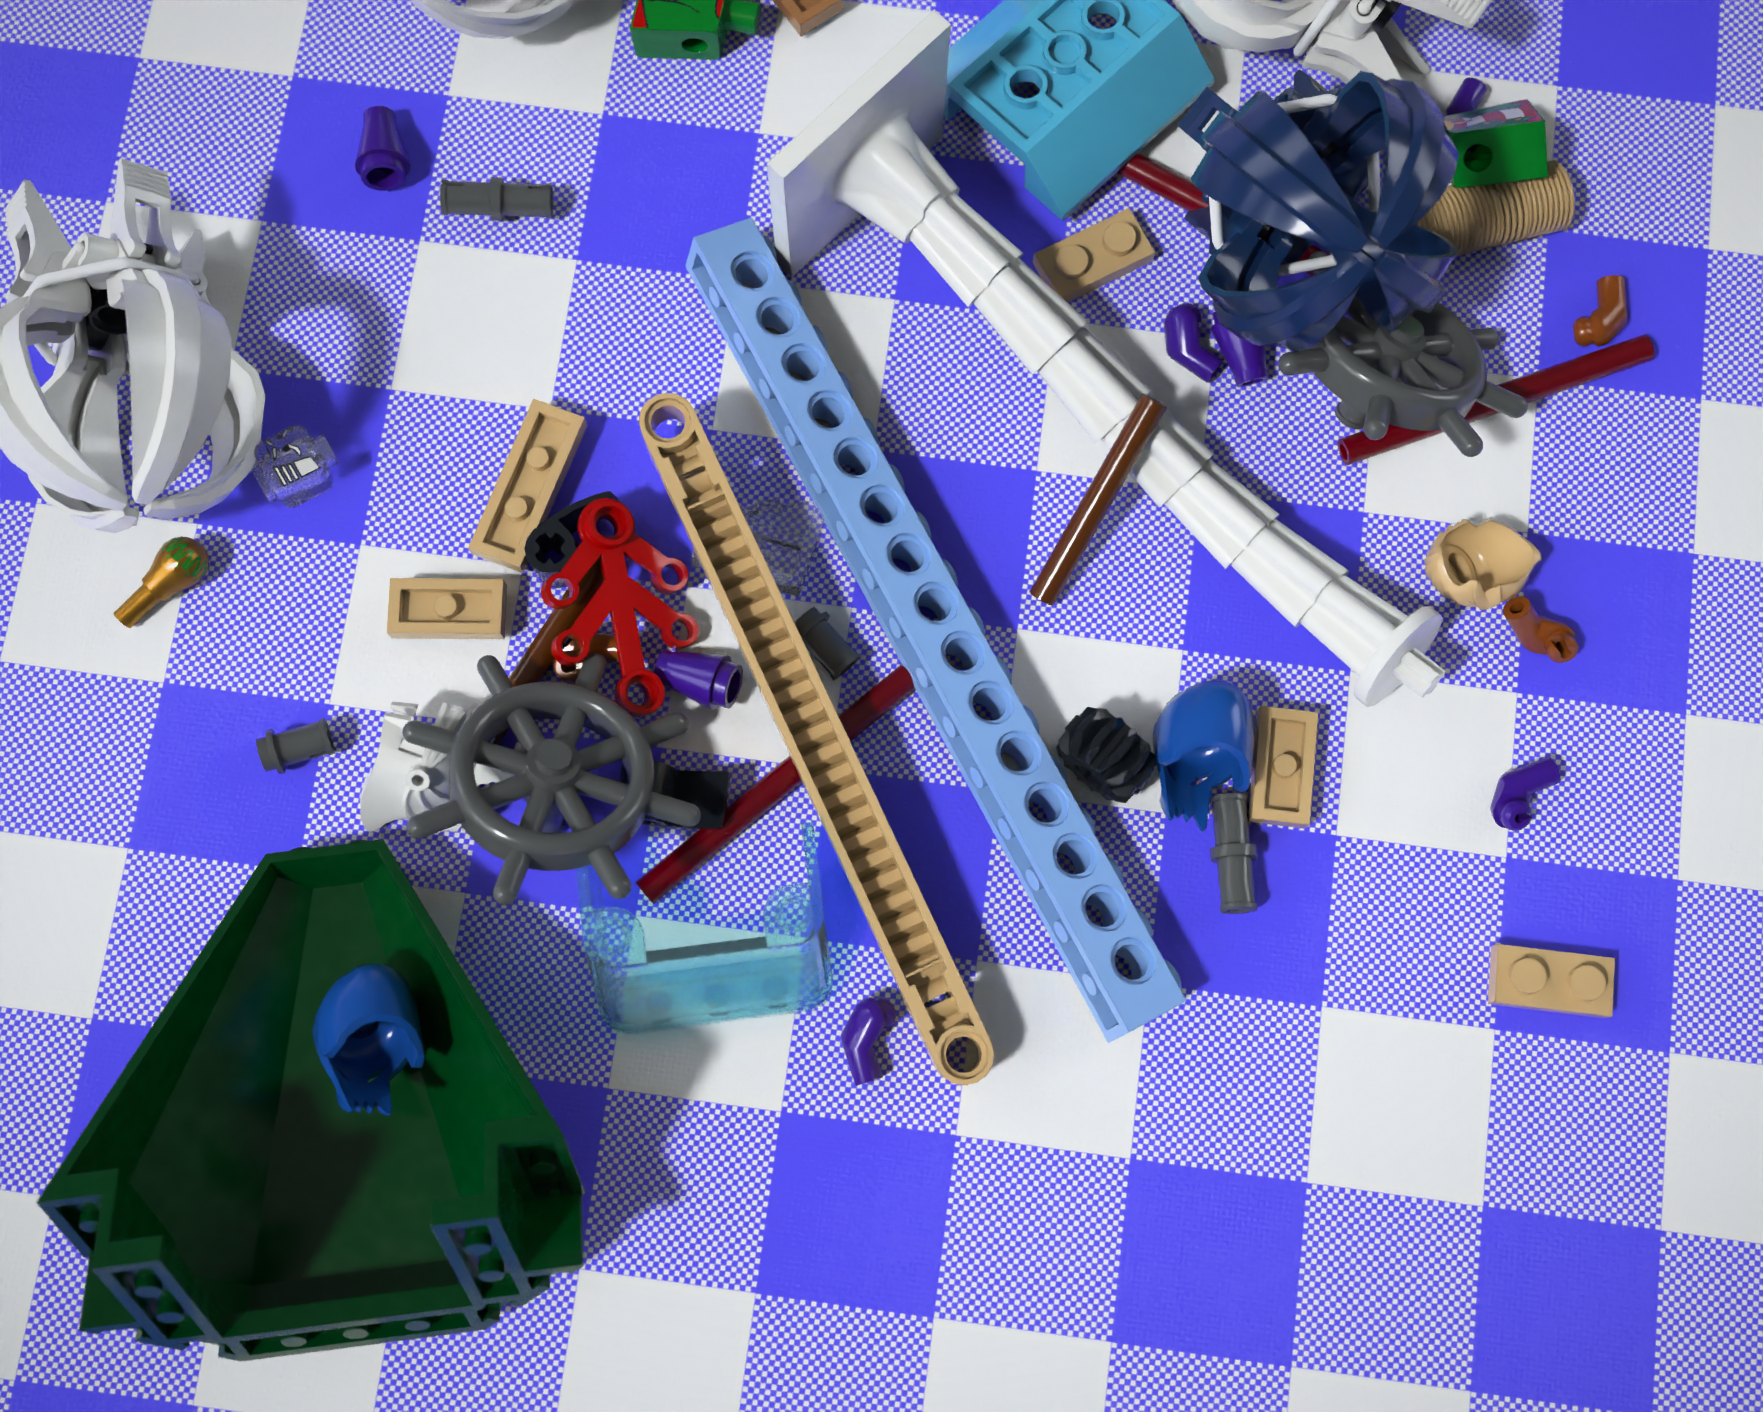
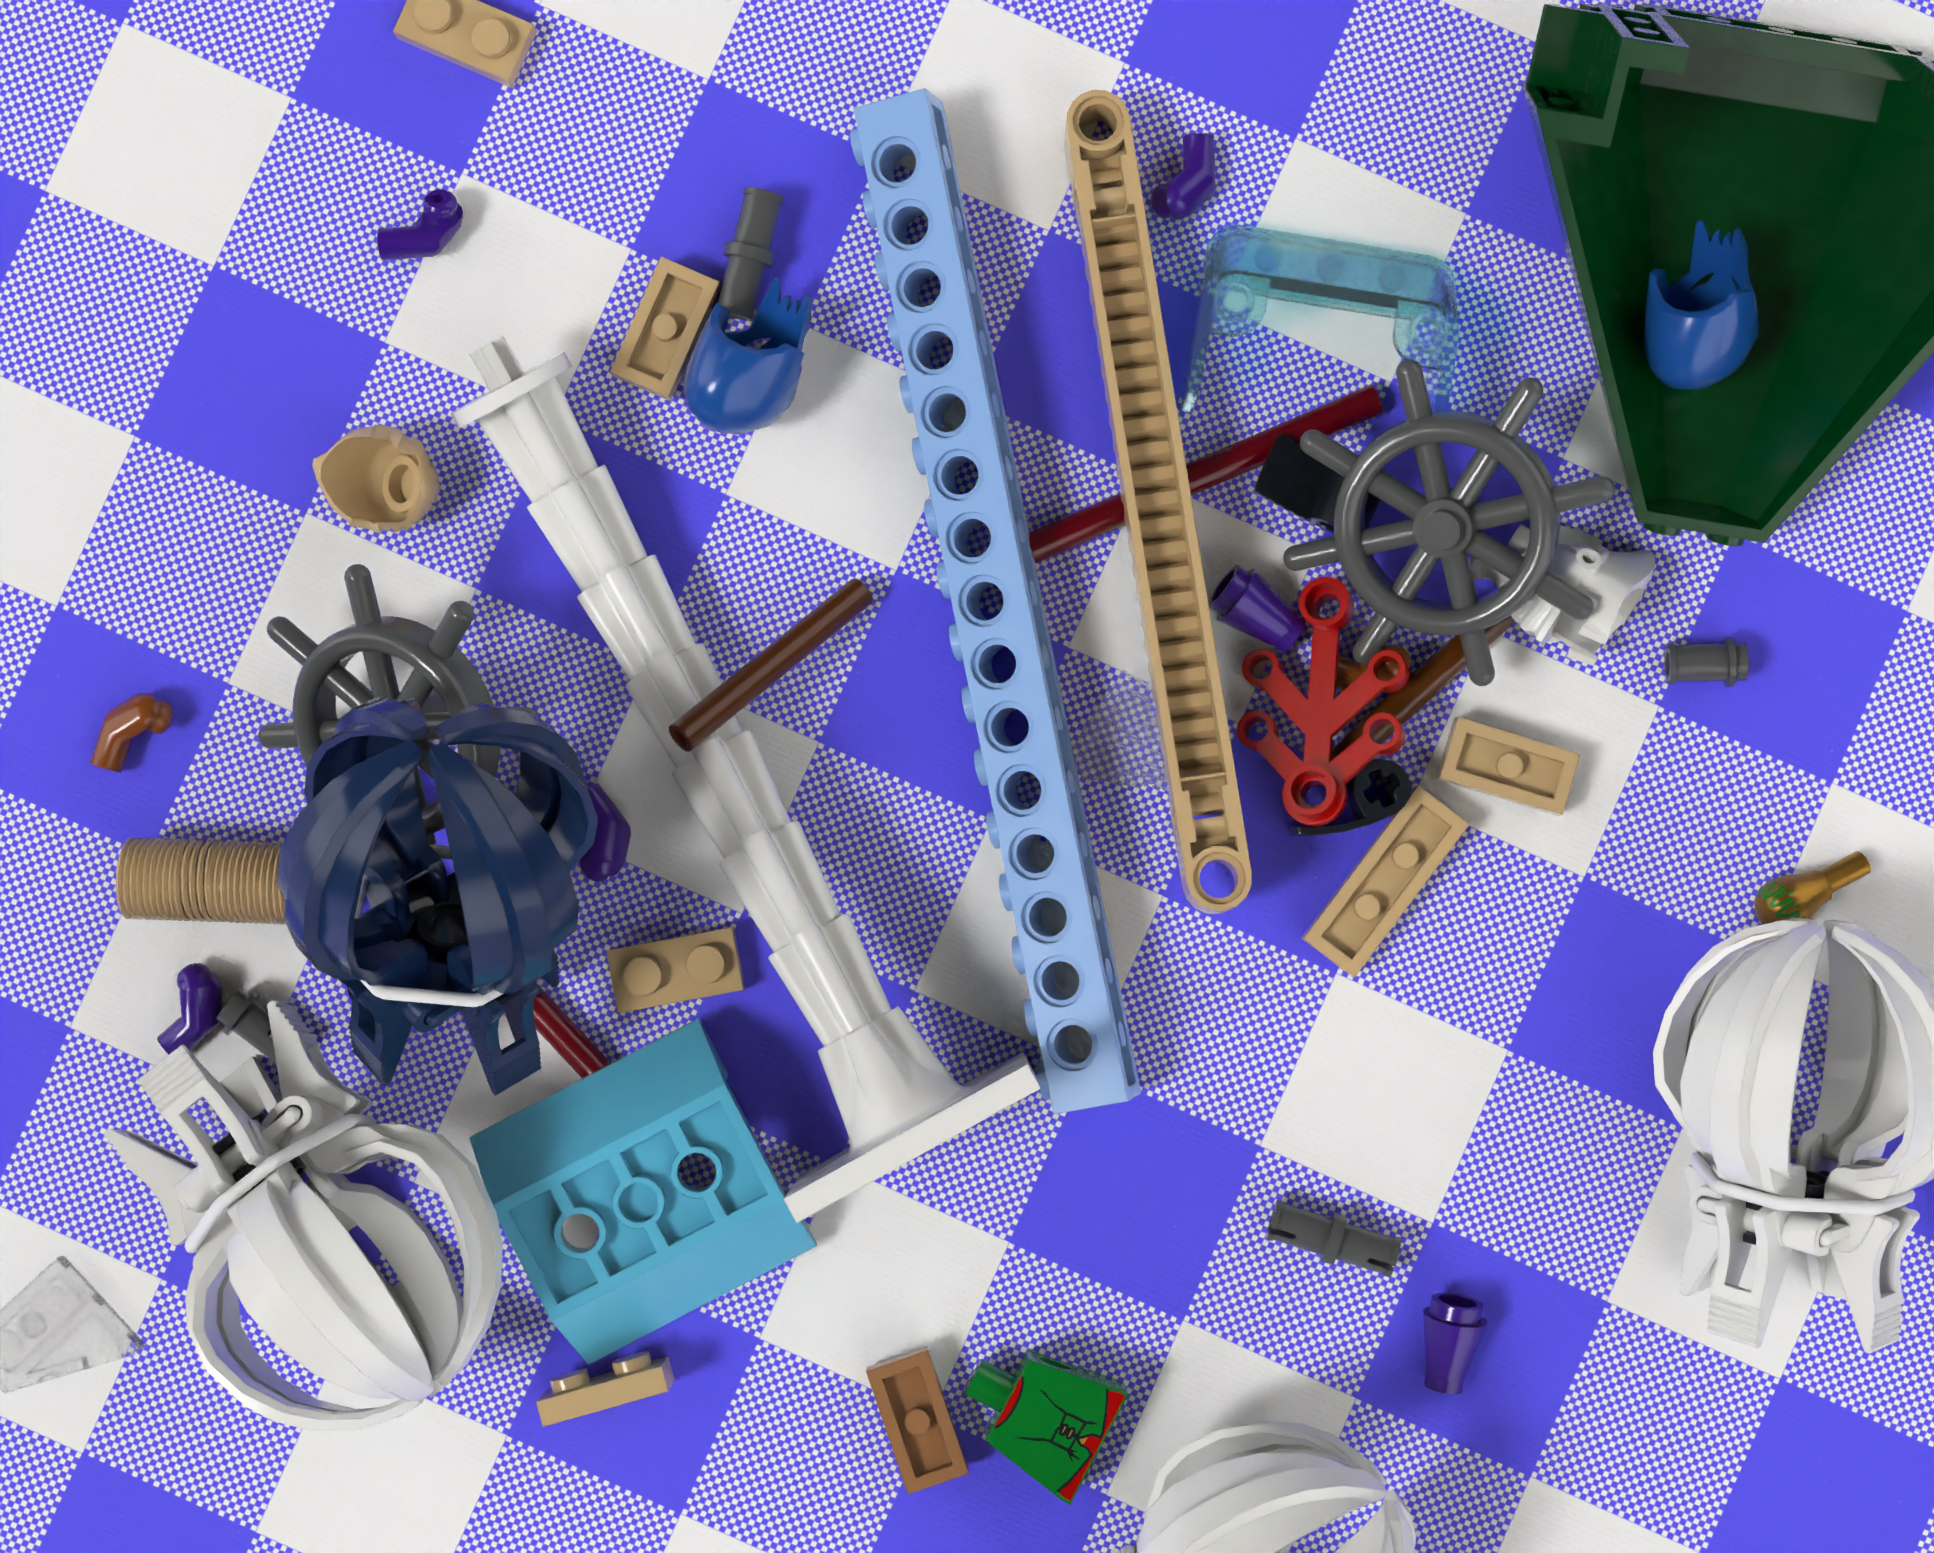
camera: 165 degrees left, 10 degrees up
(293, 466) = (1637, 974): clear head -> none
(826, 643) = (1111, 608): dark grey pin -> none
(1106, 754) = (851, 388): black gear -> none
(1508, 147) = (193, 947): green torso -> none
(1530, 386) = (224, 671): dark red piece -> none
(1539, 632) = (337, 390): dark orange arm -> none

